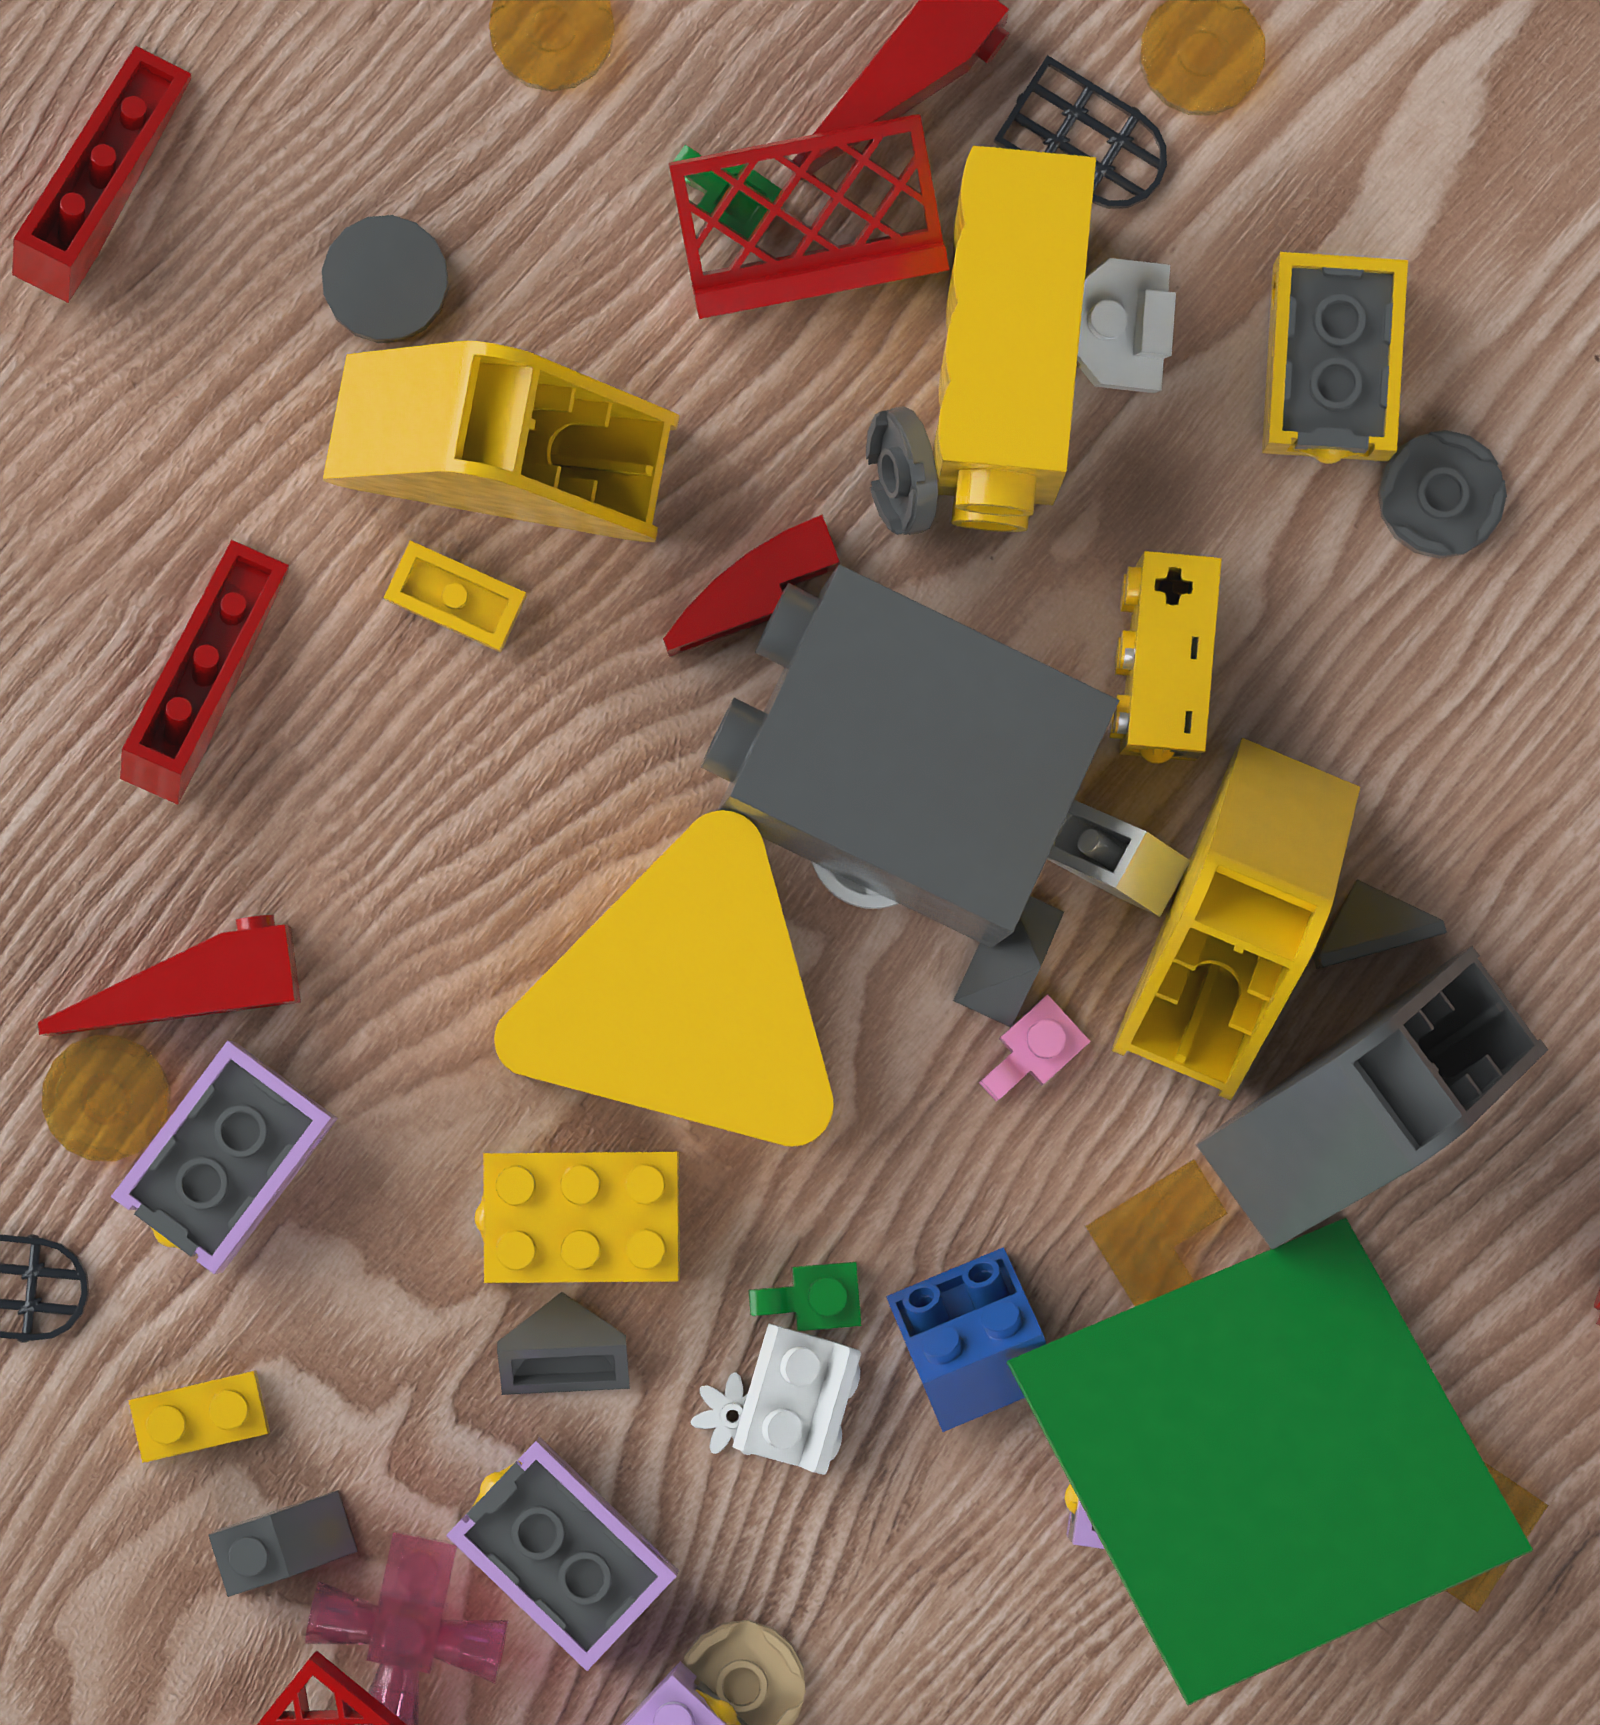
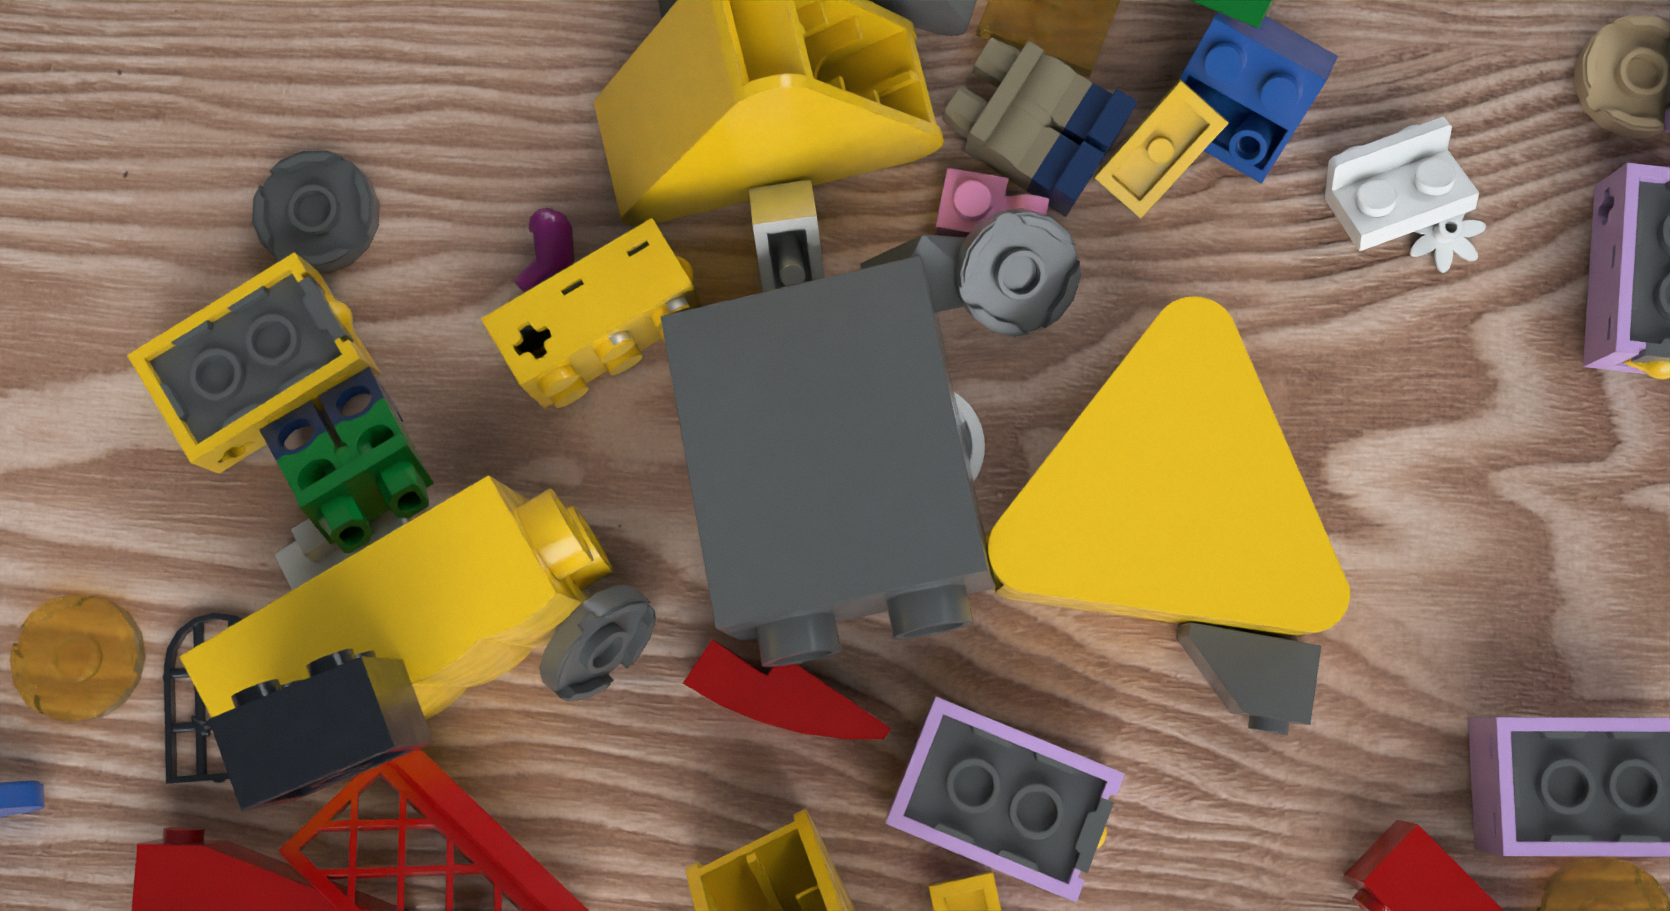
camera: 120 degrees left, 5 degrees down
(494, 971) = (1256, 674): none -> dark grey slope
(550, 699) = (1004, 798): none -> dark grey piece
(562, 1351) = (1503, 399): dark grey slope -> none
(580, 1217) = (1399, 458): yellow piece -> none
(820, 1297) = (1303, 231): green plate -> none
(954, 228) = (319, 729): none -> black brick
(957, 1028) = (1017, 271): none -> tile
(973, 1223) = (1160, 148): none -> yellow plate
(1090, 1138) = (1041, 124): none -> dark tan hips
(1170, 375) = (352, 481): none -> green hips
(1261, 665) = (552, 248): none -> magenta arm

